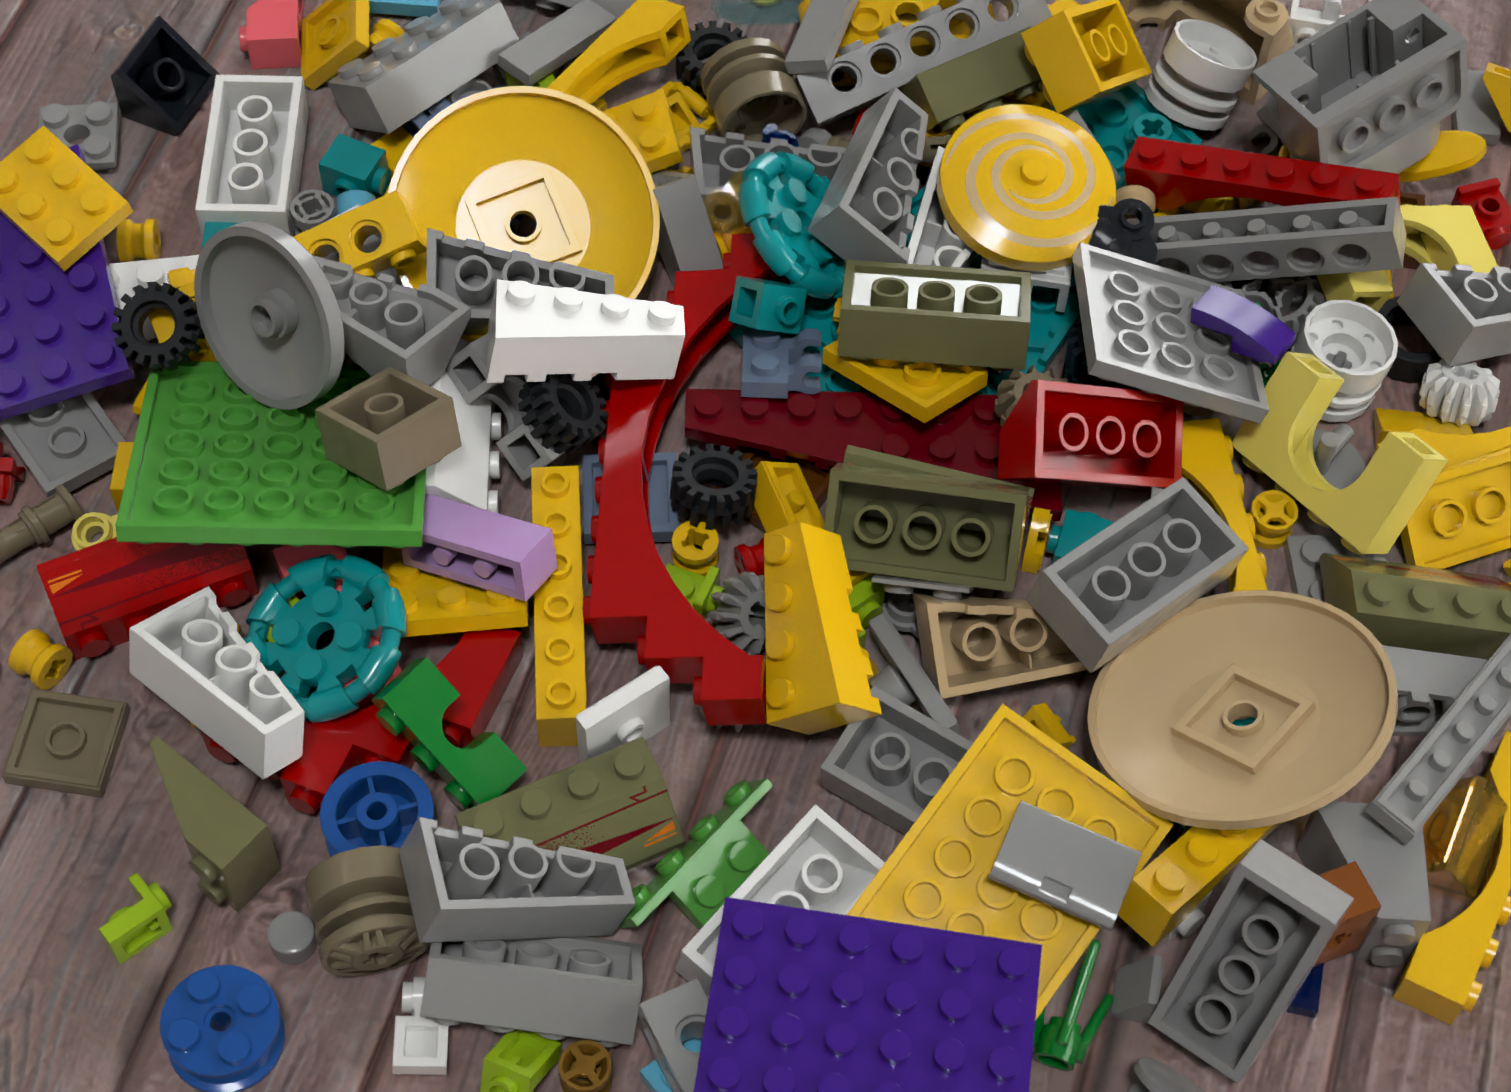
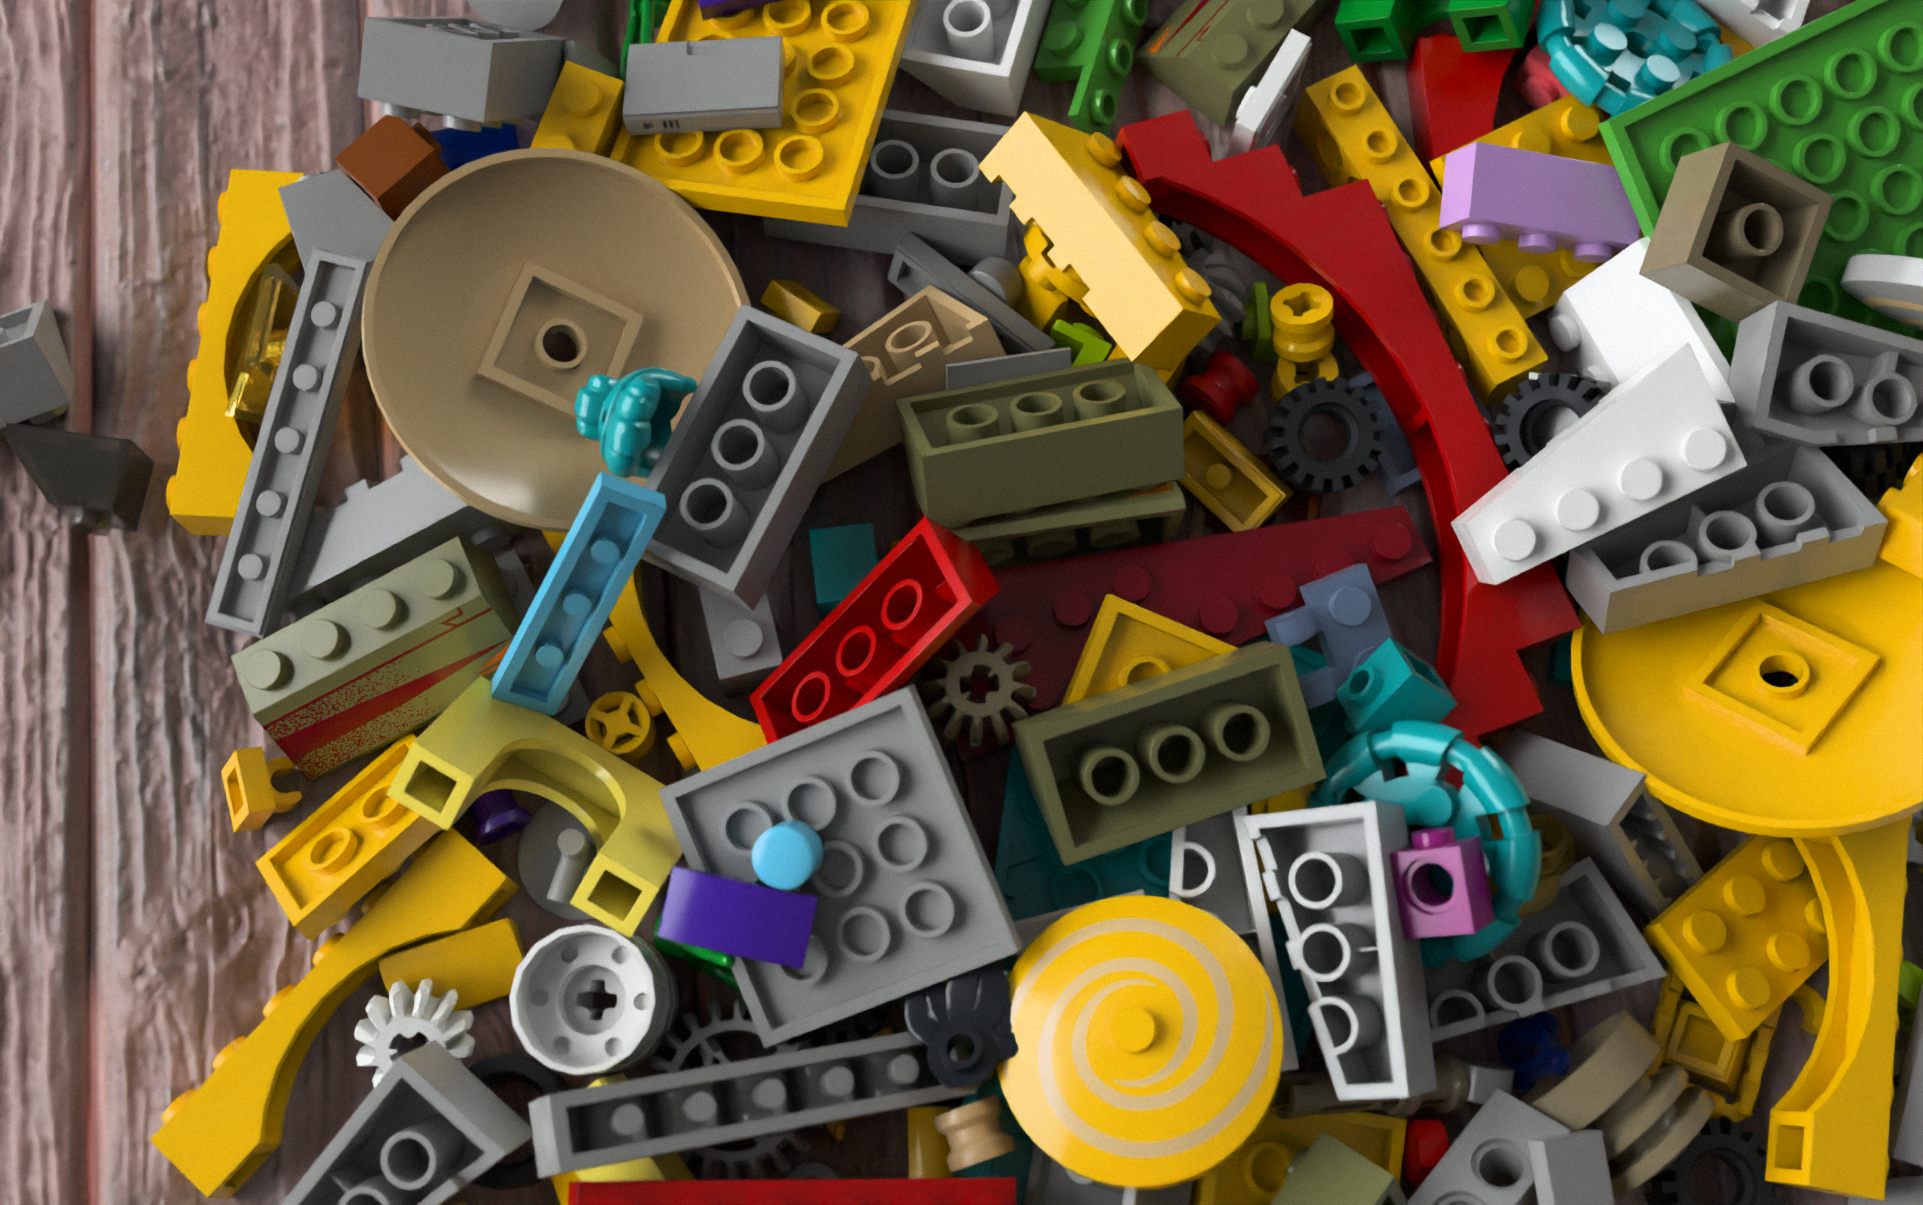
camera: 155 degrees right, 15 degrees up
(687, 568) = (1302, 322): none -> yellow wheel
(815, 173) = (1424, 909): none -> magenta brick
(1201, 335) = (787, 855): none -> medium azure piece
(1214, 620) = (631, 416): none -> teal hair
(1284, 533) = (578, 593): none -> medium azure plate

